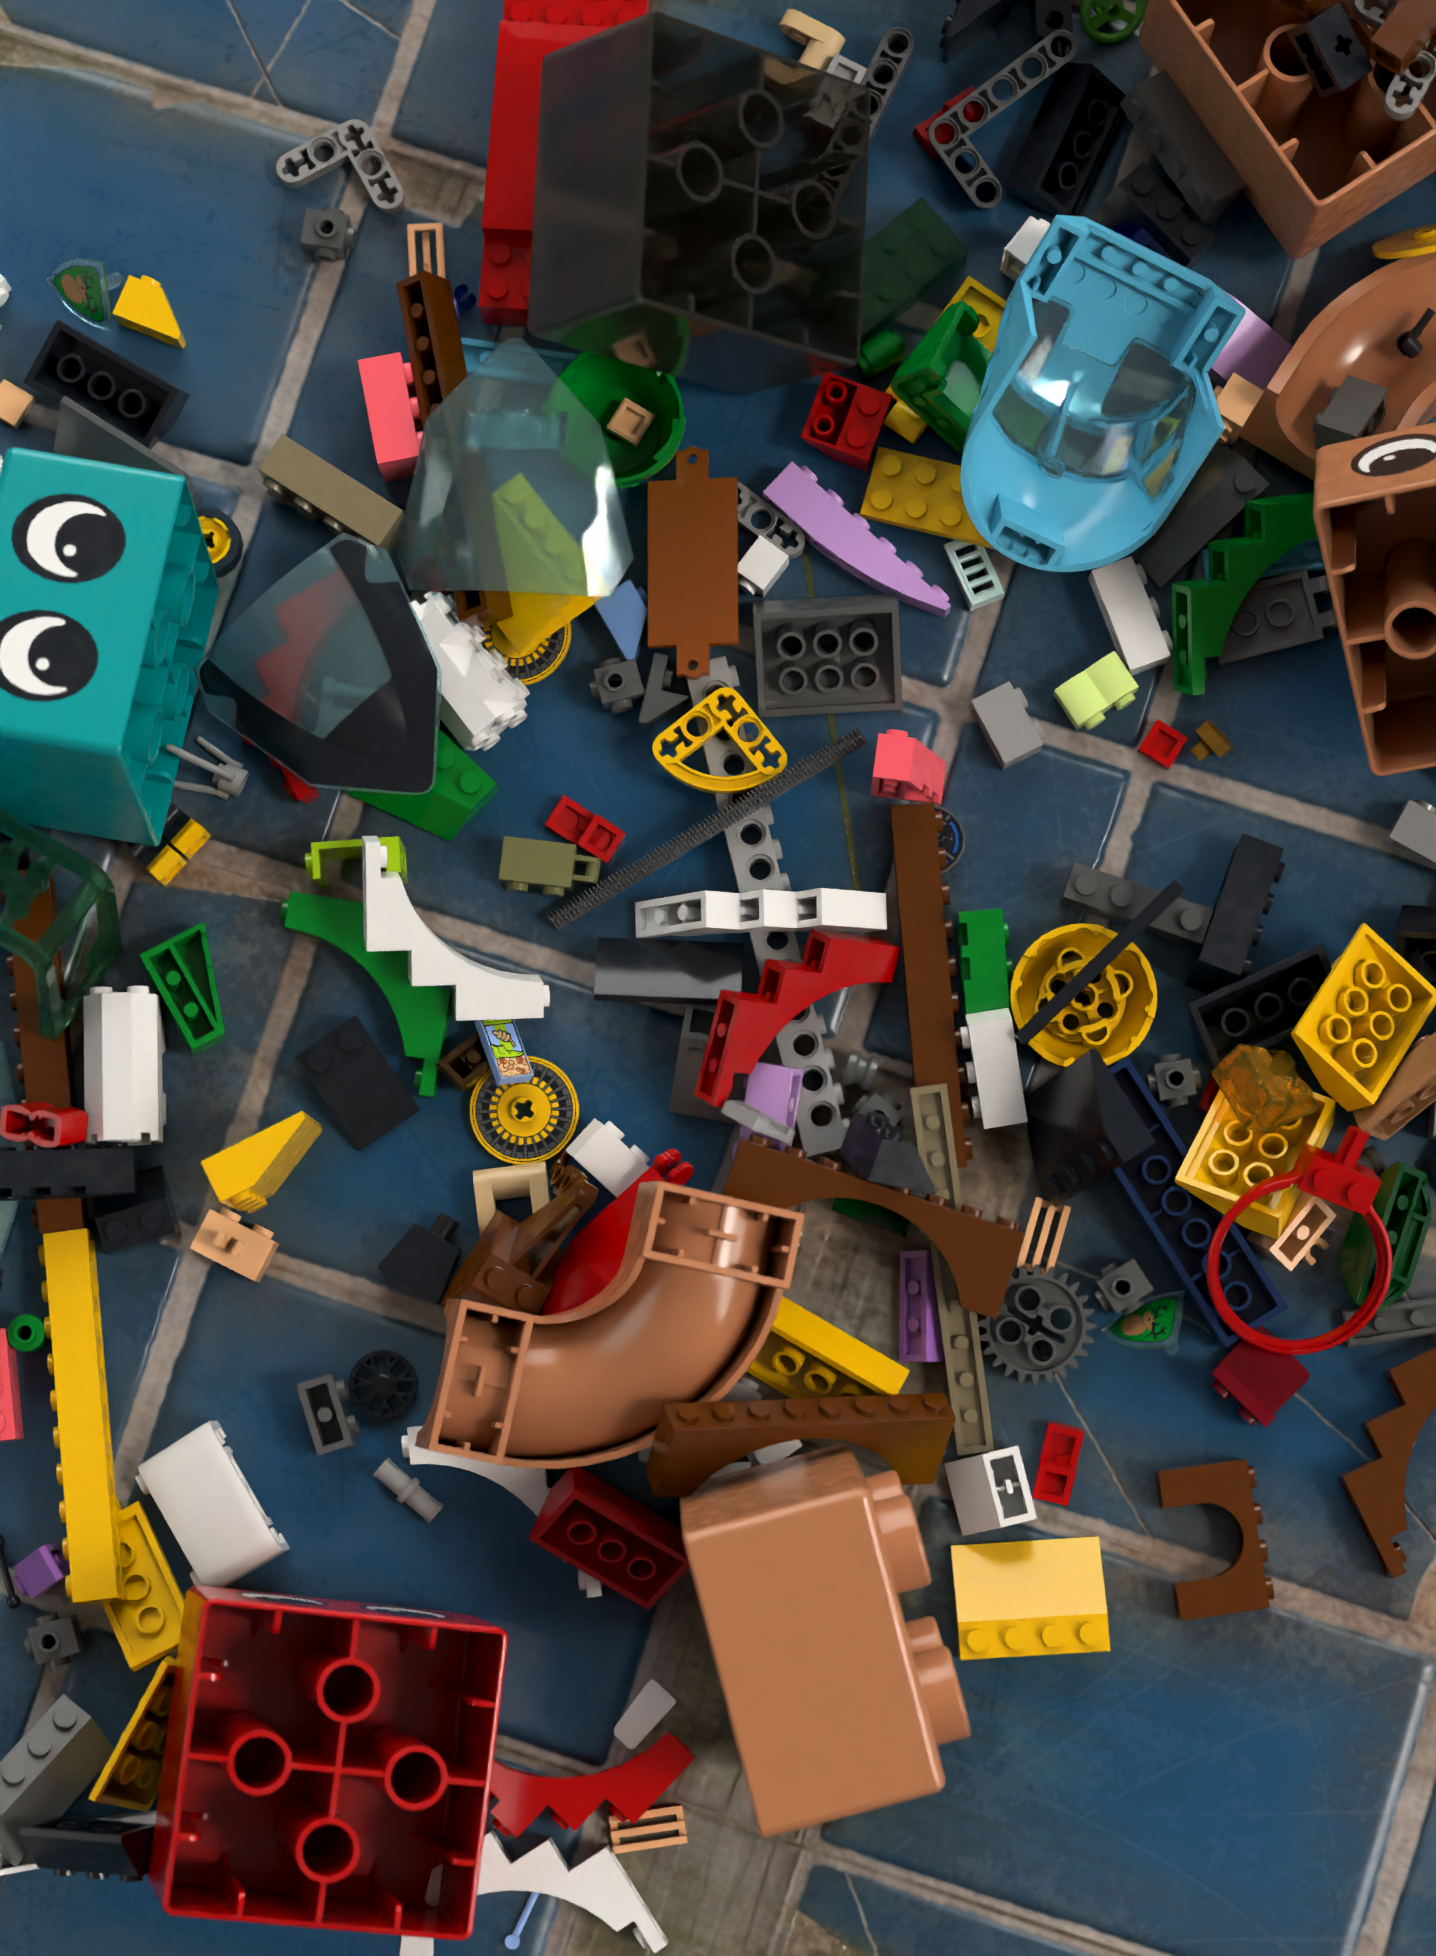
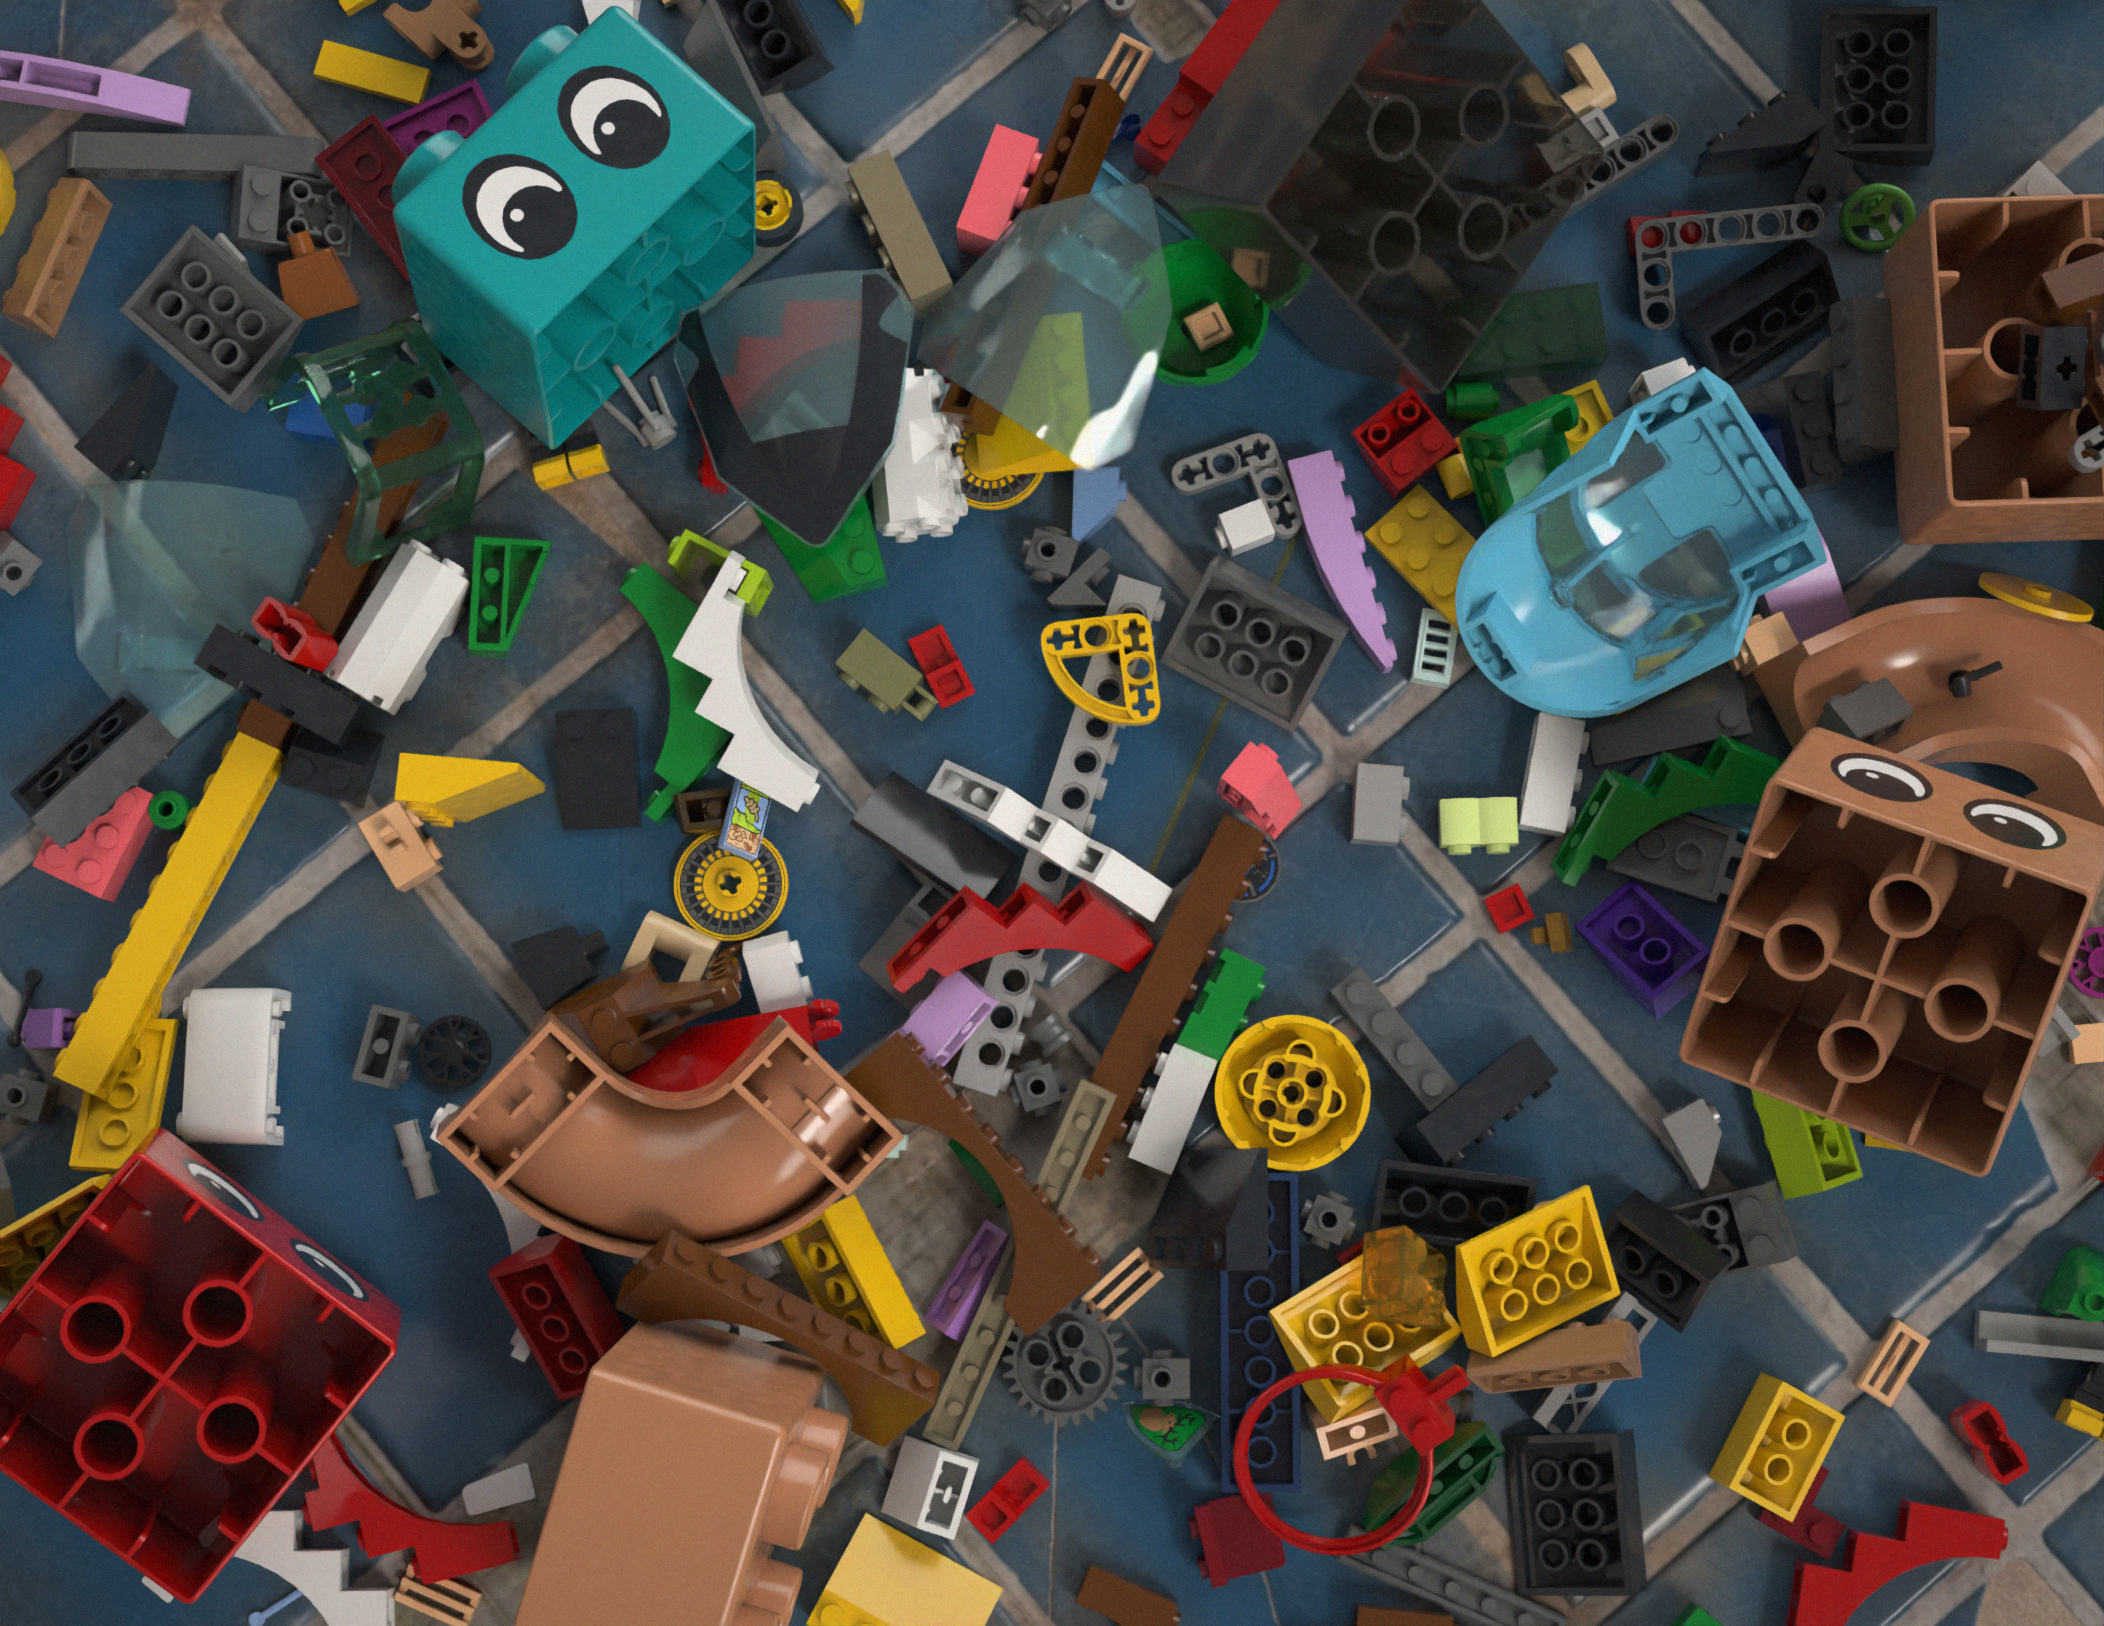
camera: 30 degrees right, 0 degrees up
(693, 563) = (1184, 487): dark orange piece -> none
(708, 829) = (1051, 733): dark grey axle -> none
(757, 1120) = (925, 1023): light grey tile -> none
(884, 1153) = (1018, 1124): black slope -> none
(1099, 963) = (1324, 1072): black tile -> none
(1291, 708) = (1645, 948): none -> dark purple slope

